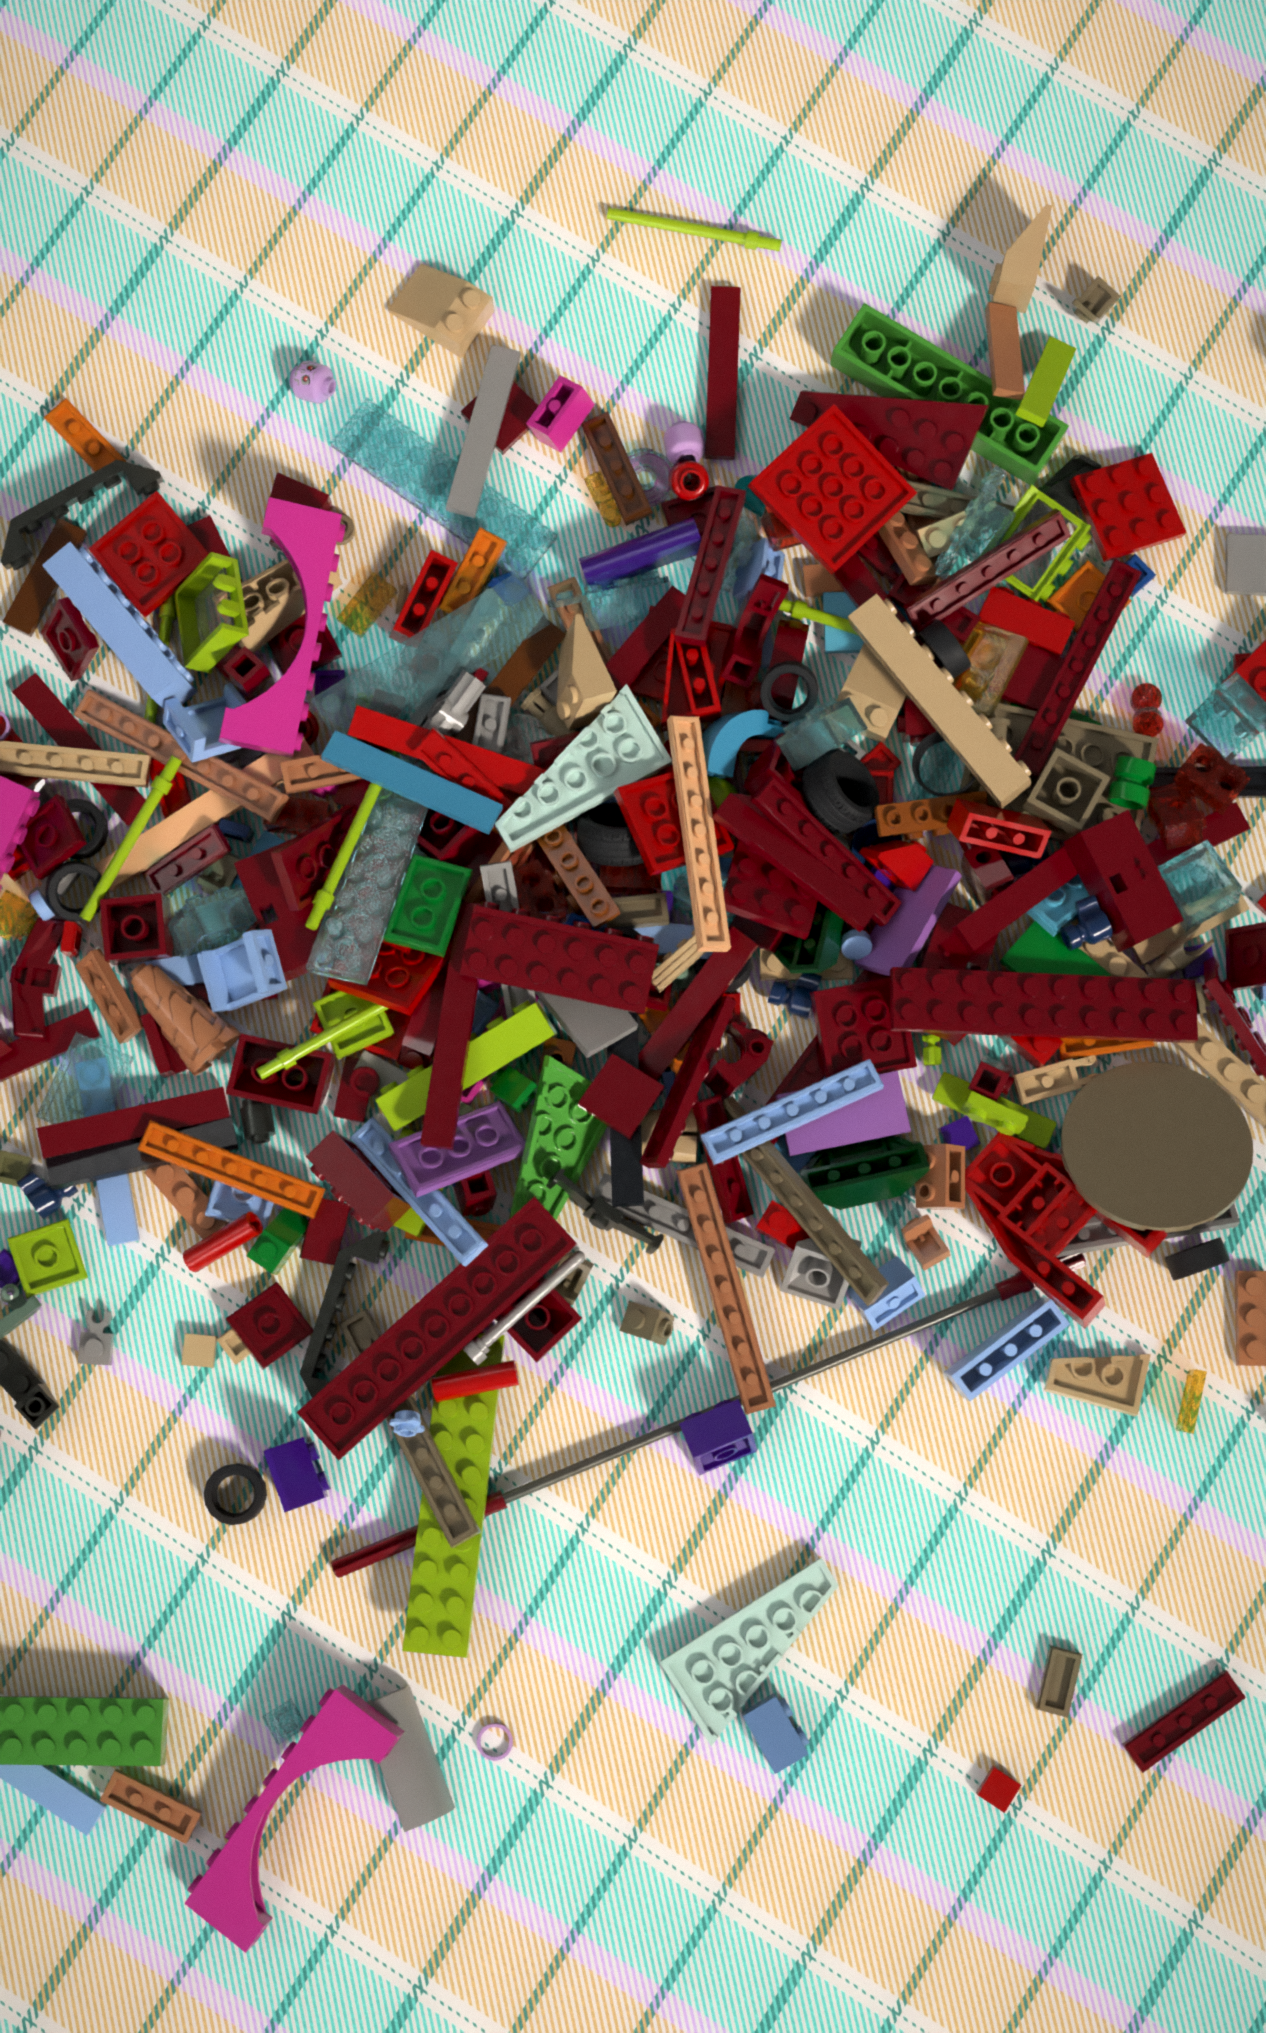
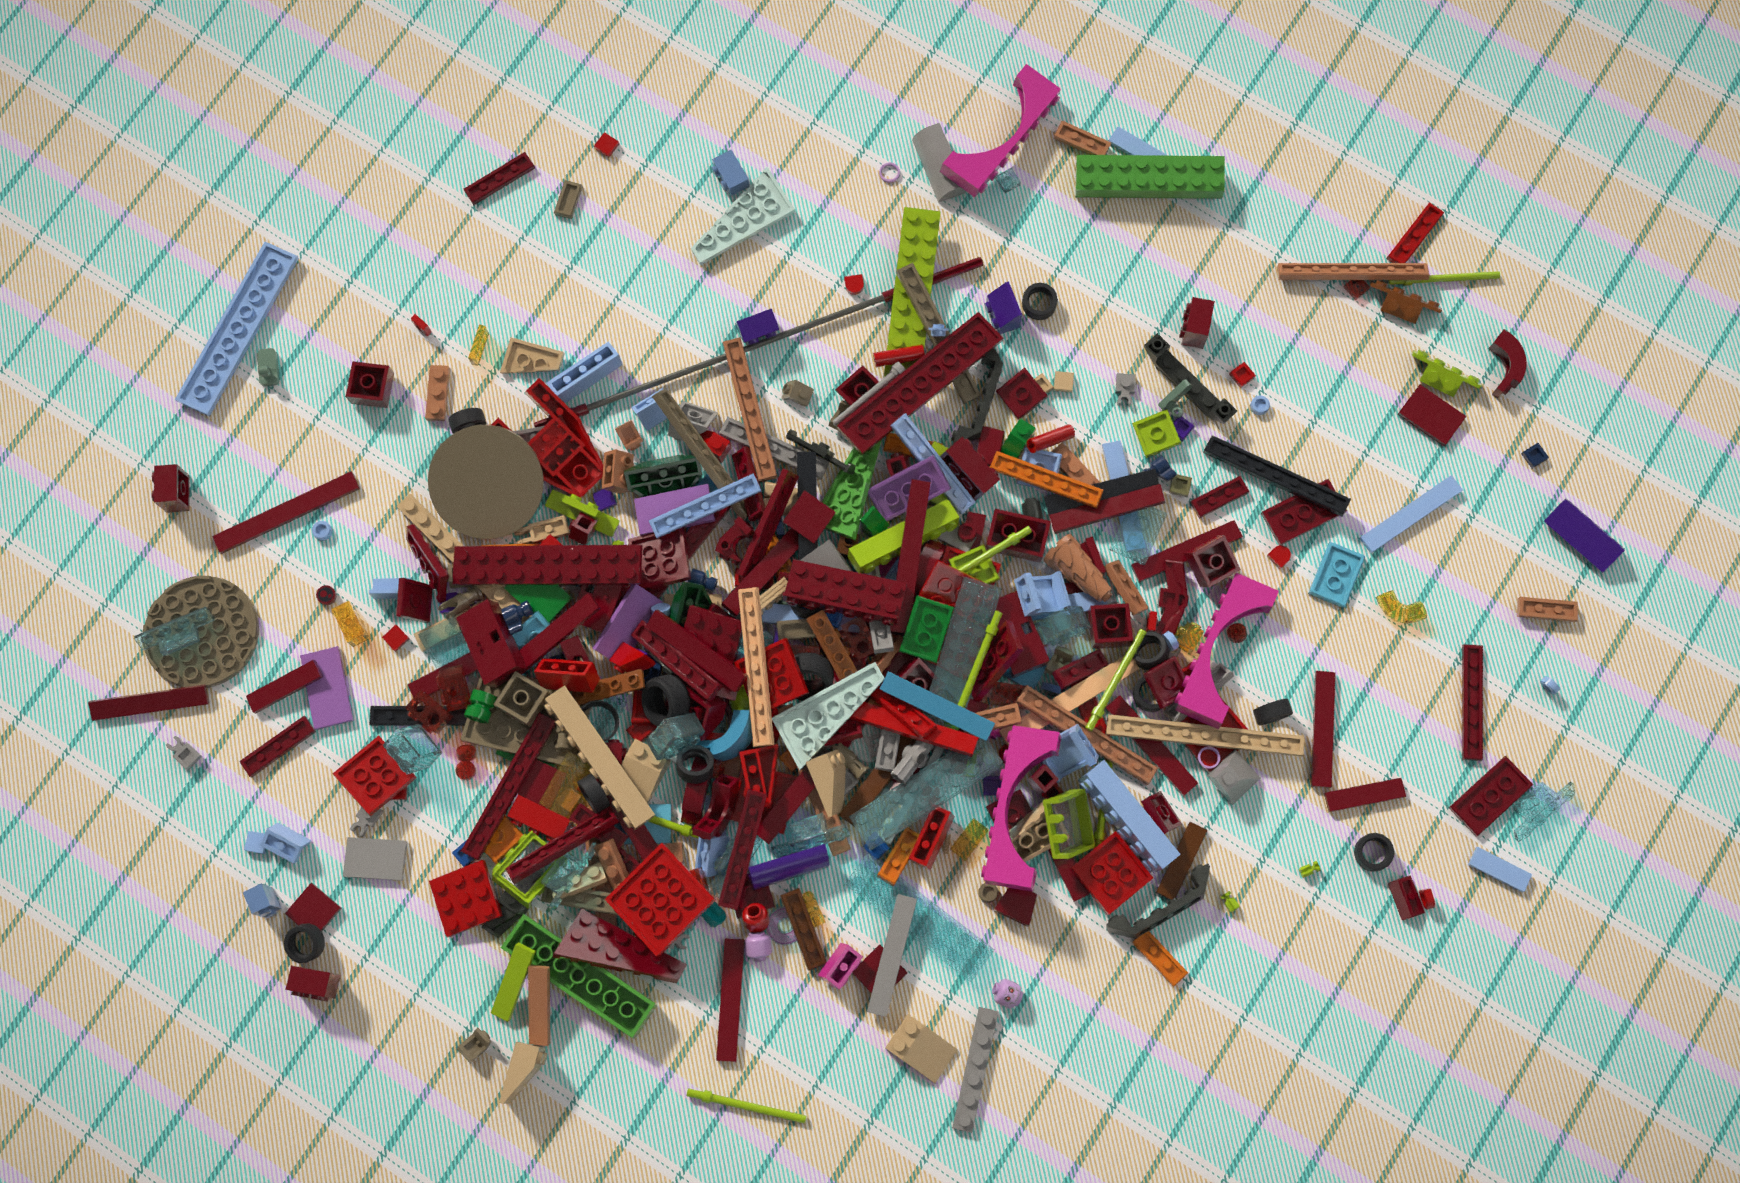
camera: 175 degrees left, 5 degrees down
(362, 283) = (975, 1069): none -> light grey plate
(554, 1525) = (854, 284): none -> red tile

